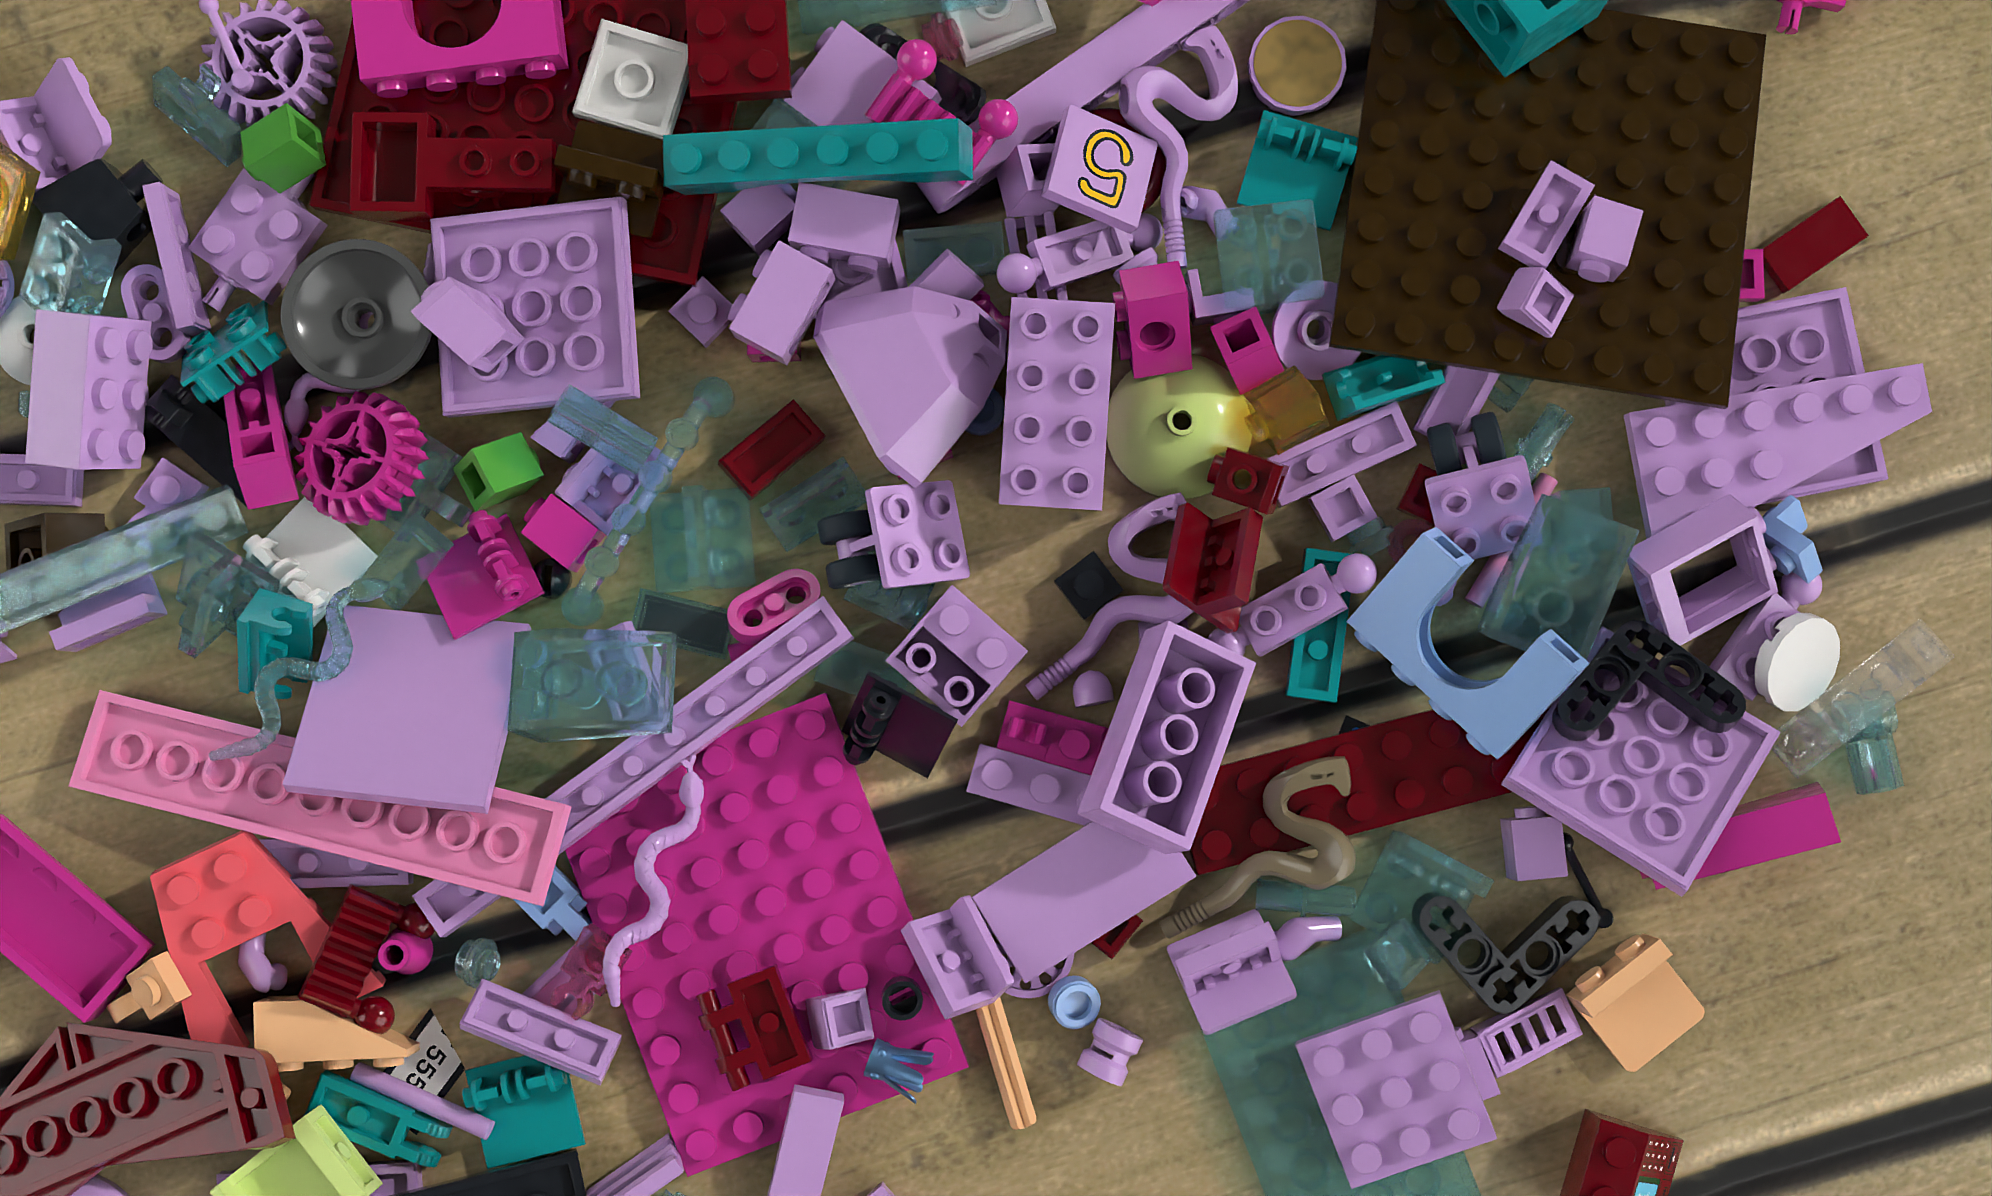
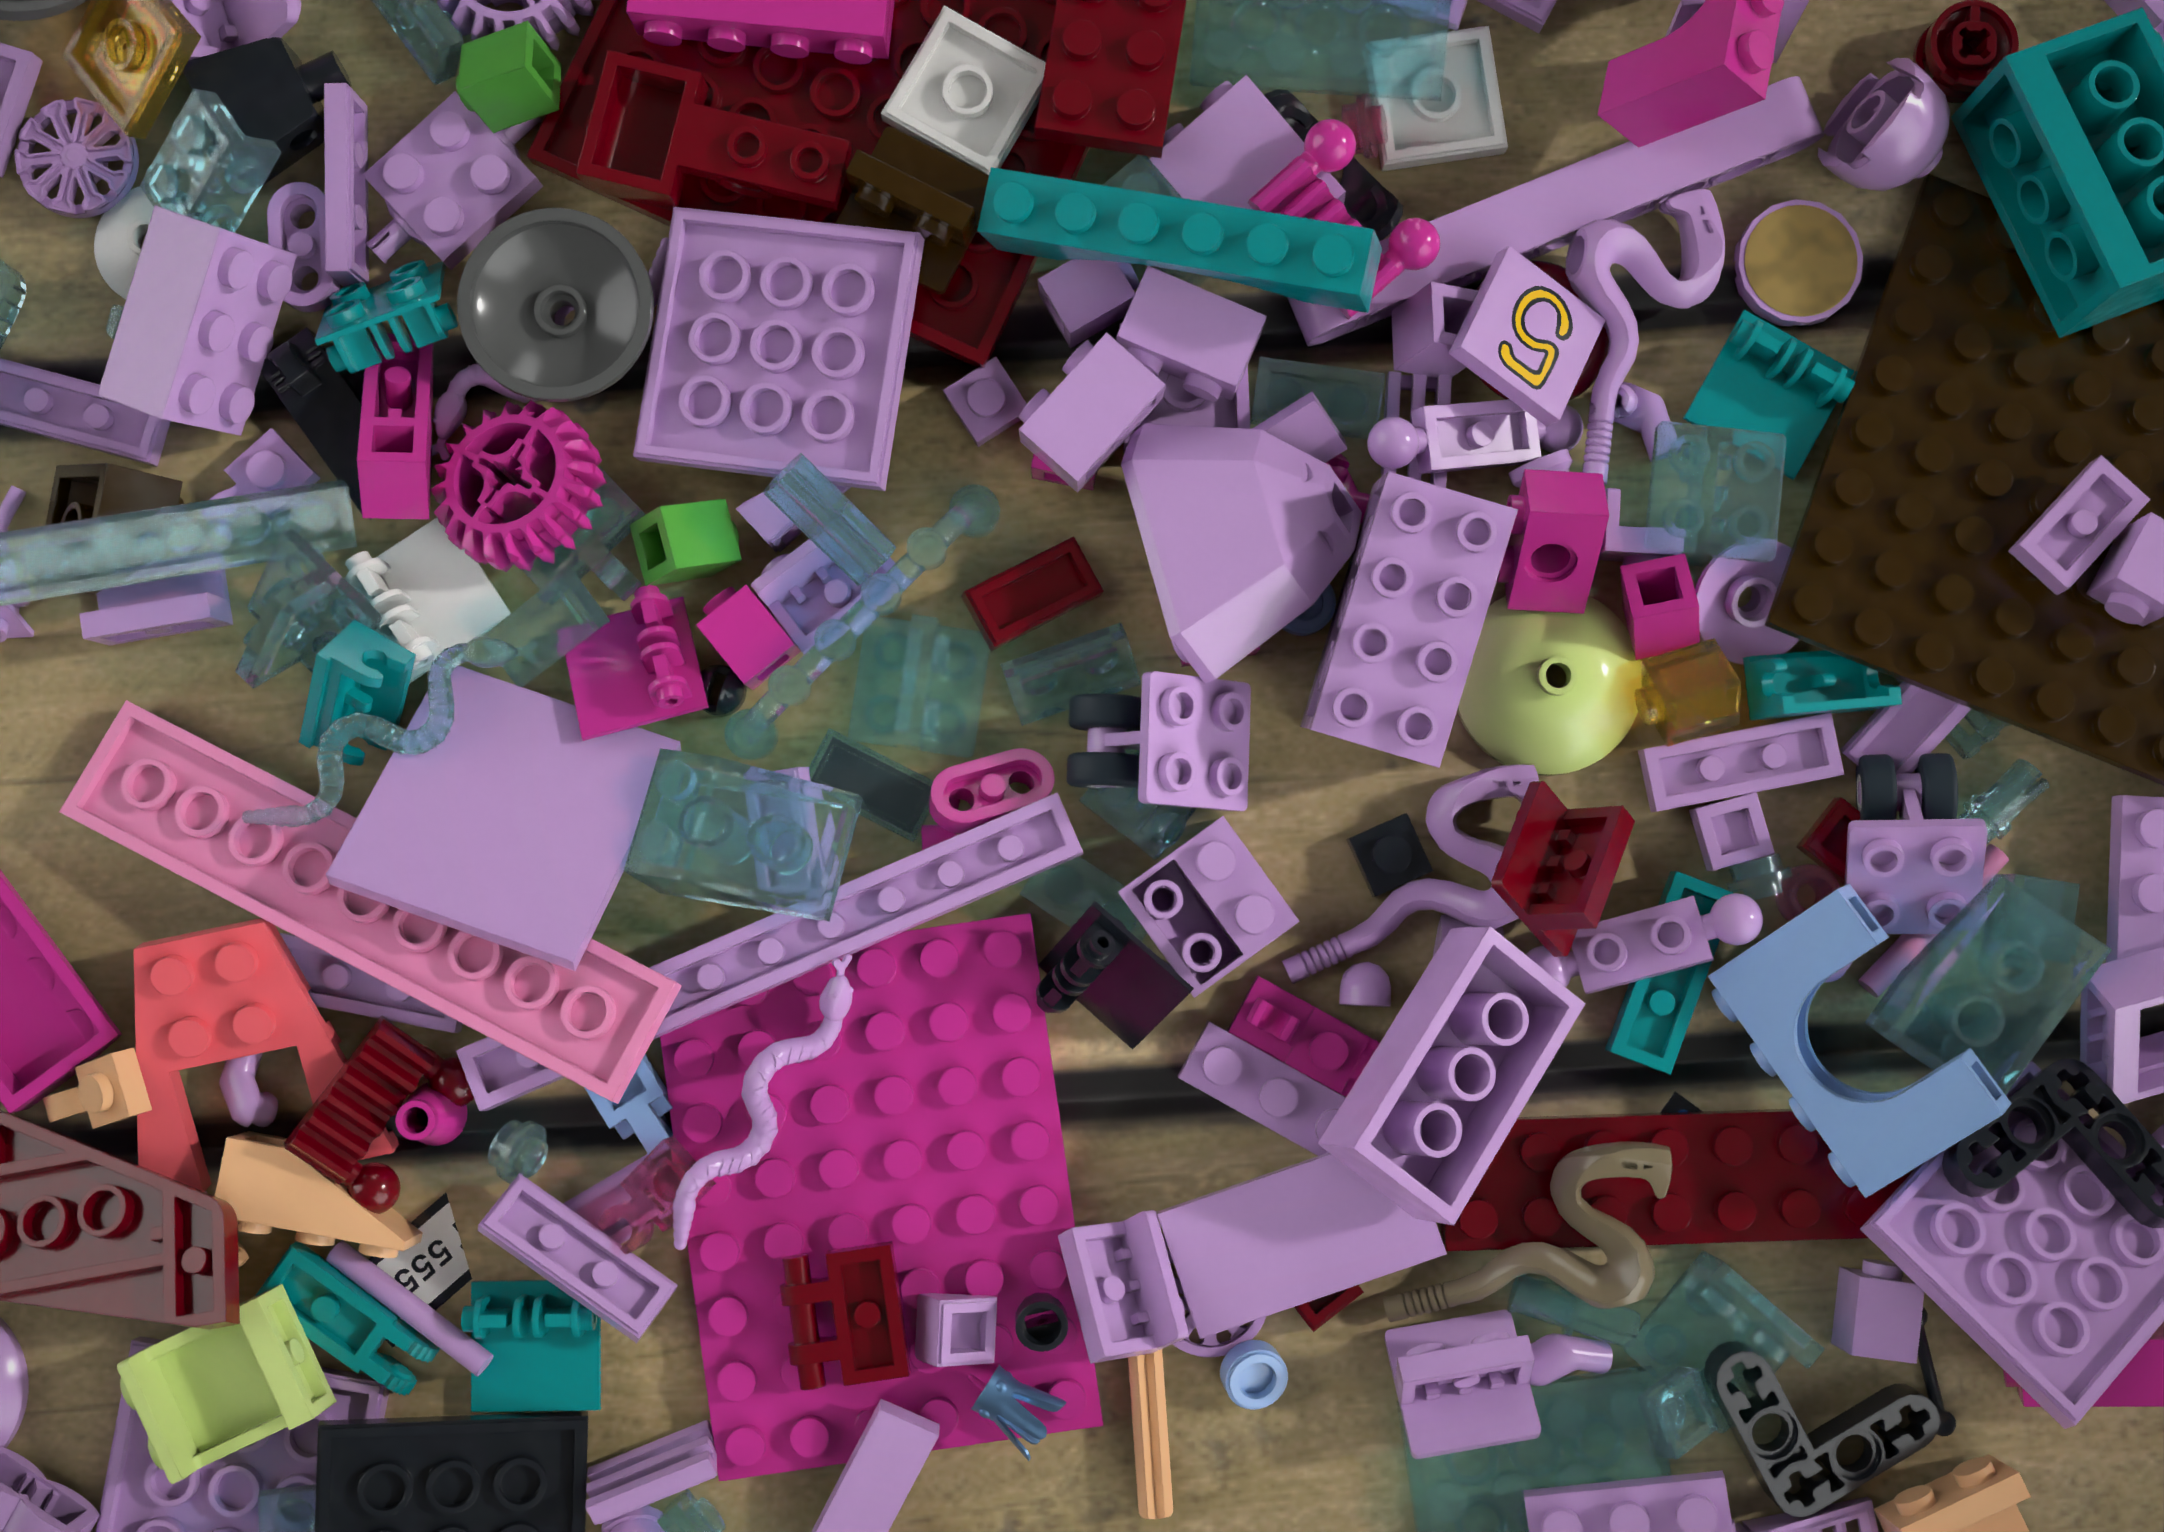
camera: 10 degrees right, 0 degrees up
(467, 323) = (691, 347): lavender slope -> none
(1115, 1041) = (1296, 1438): lavender wheel -> none
(1265, 485) = (1649, 772): dark red brick -> none
(1535, 300) = (2041, 626): lavender slope -> none

